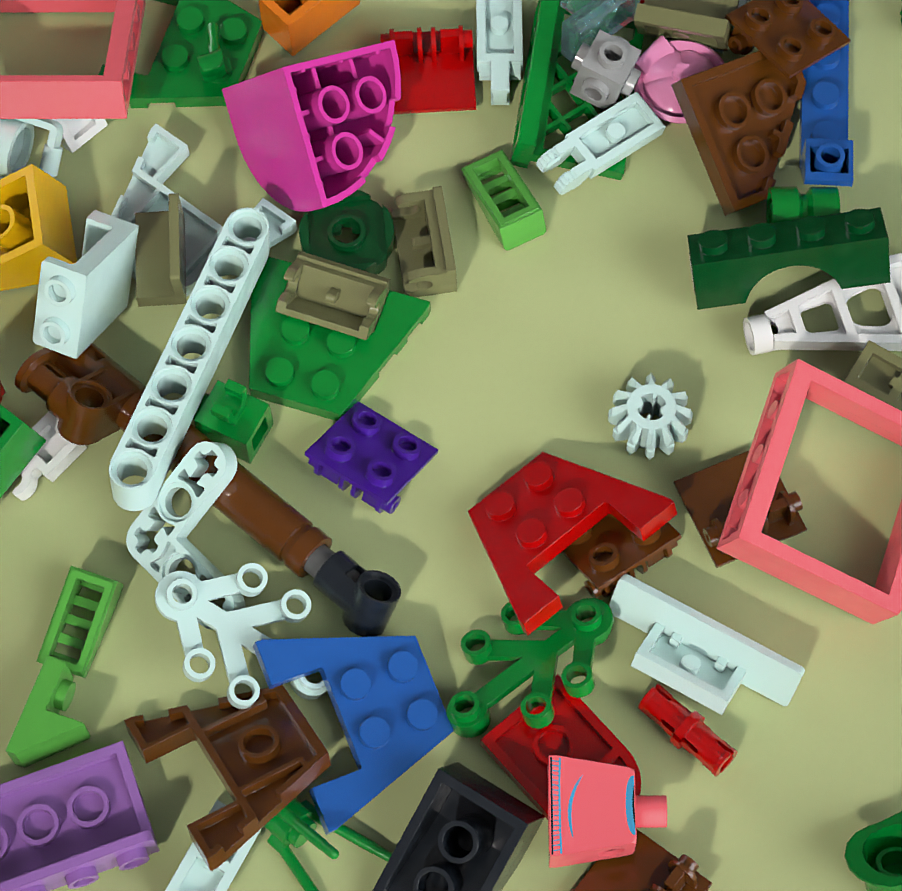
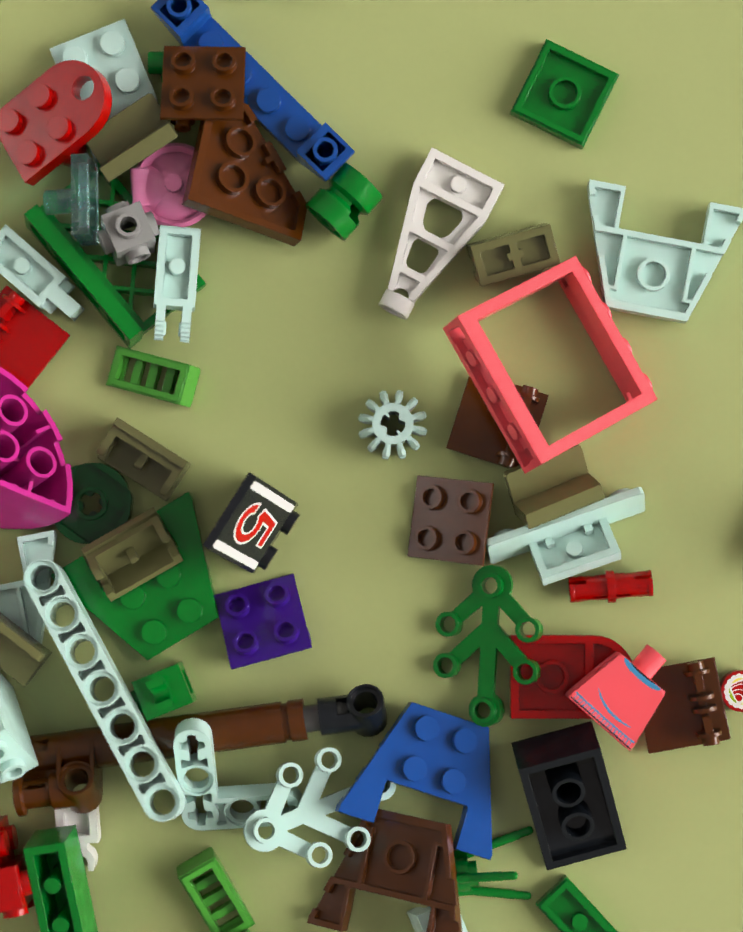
camera: 50 degrees left, 20 degrees up
(451, 354) = (252, 525): none -> black slope
(546, 511) = (399, 554): red wing -> none
(730, 592) = (552, 488): none -> olive panel
(845, 245) = (392, 203): dark green arch -> none

